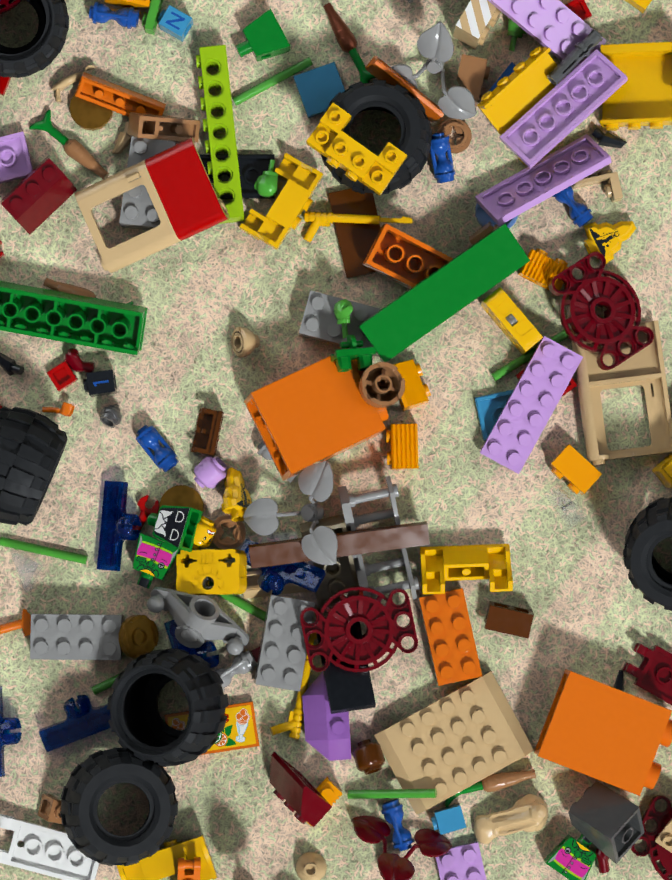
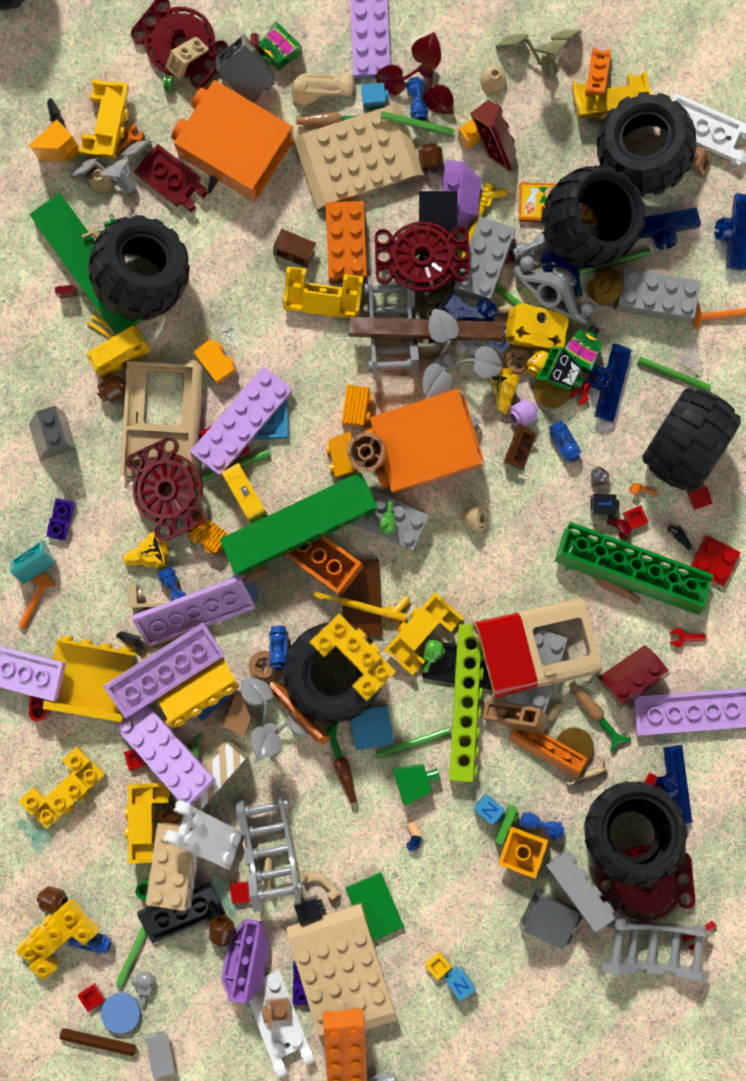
camera: 170 degrees left, 0 degrees up
(344, 356) = (377, 479): green hips -> none
(581, 50) = (149, 711): dark grey pin -> none

